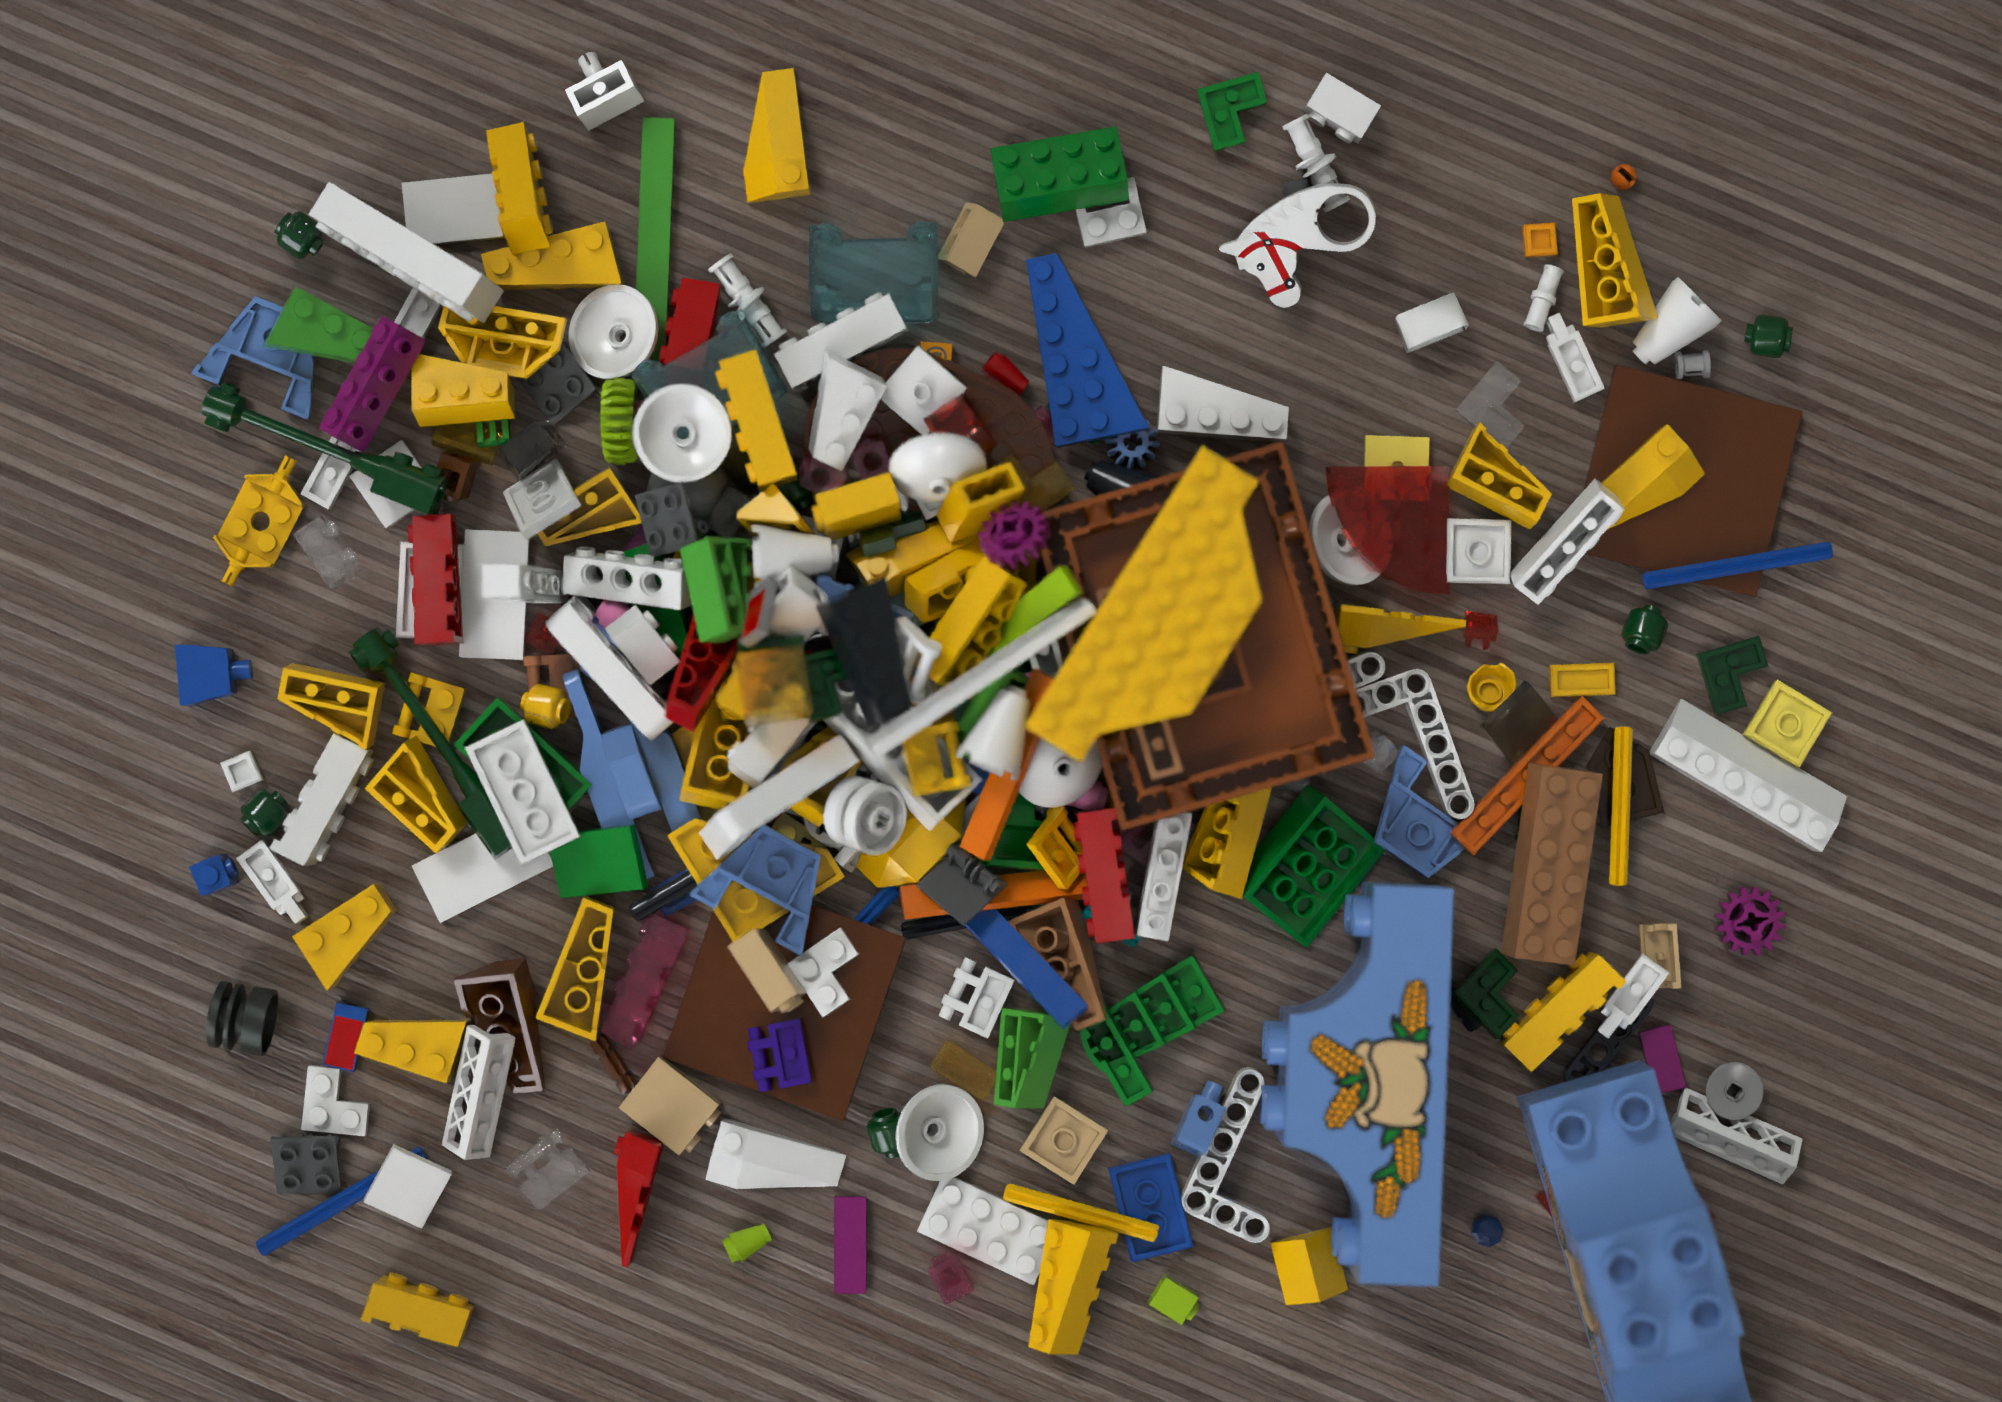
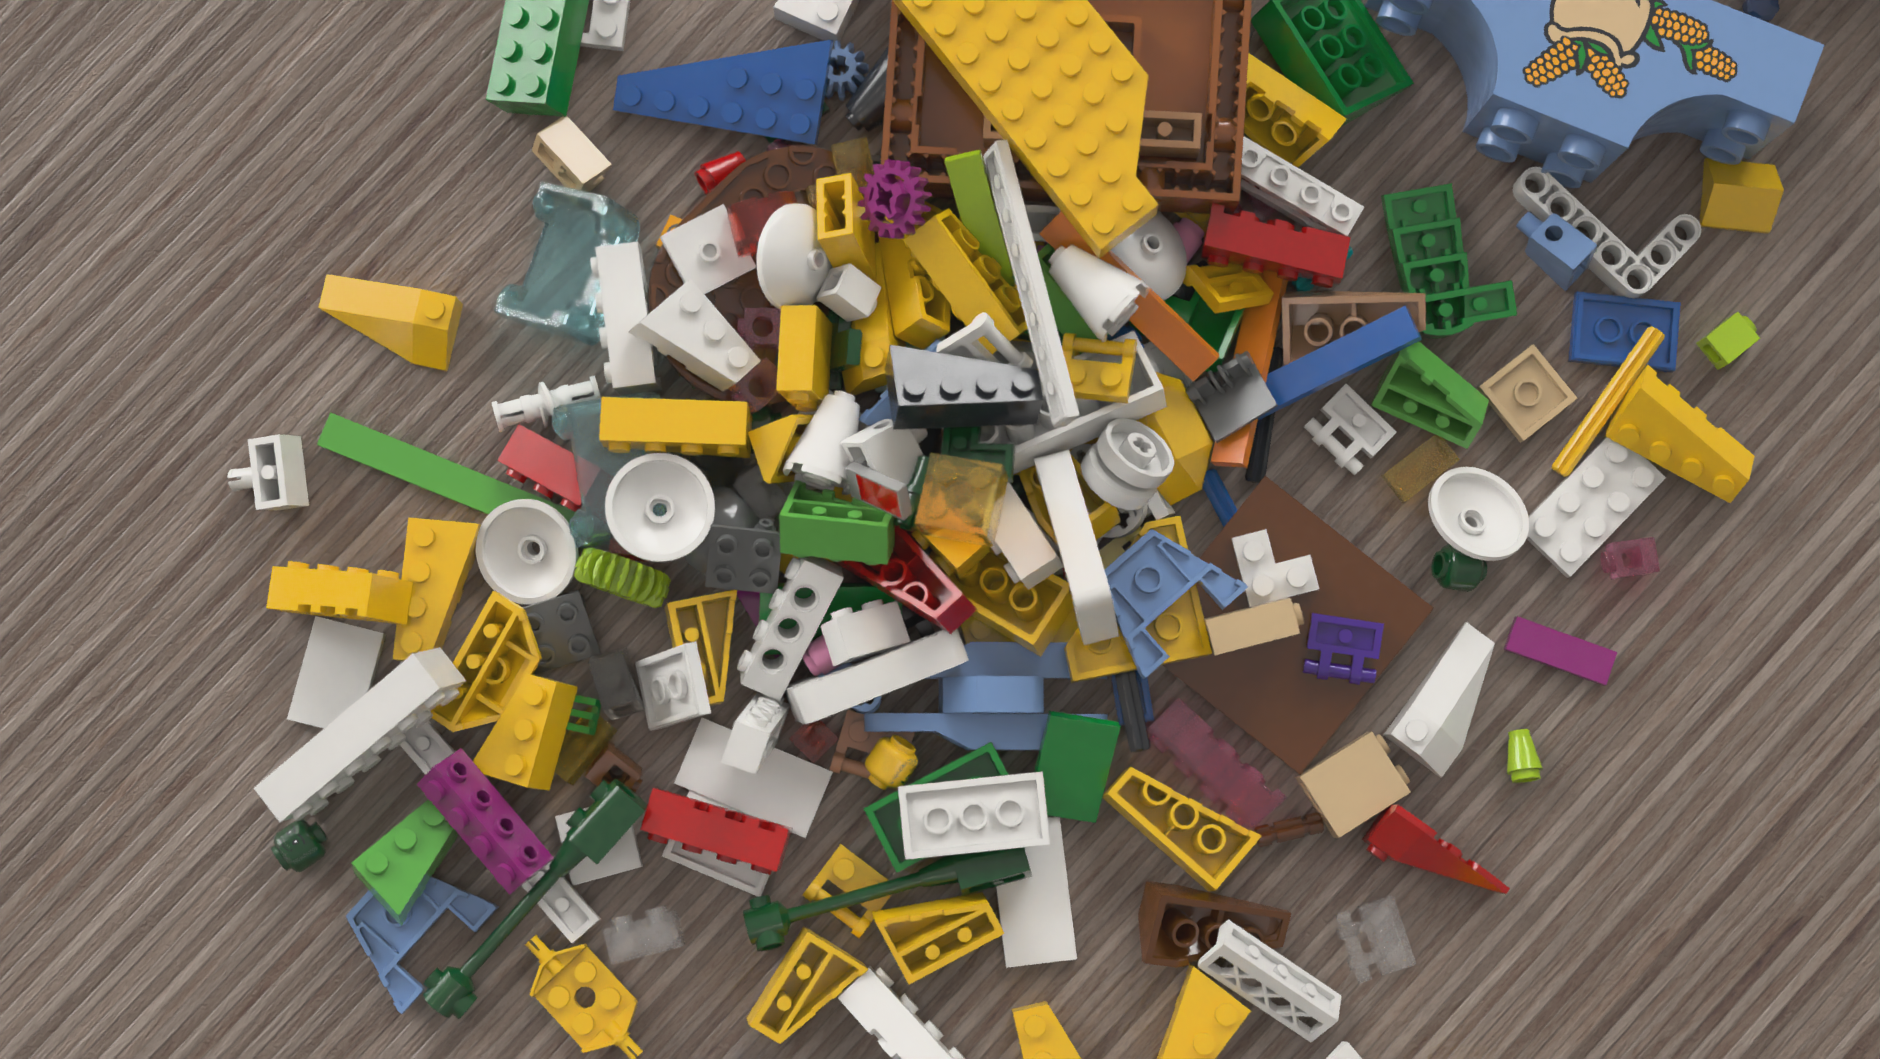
camera: 75 degrees left, 5 degrees down
(925, 525) = (849, 293): none -> white brick

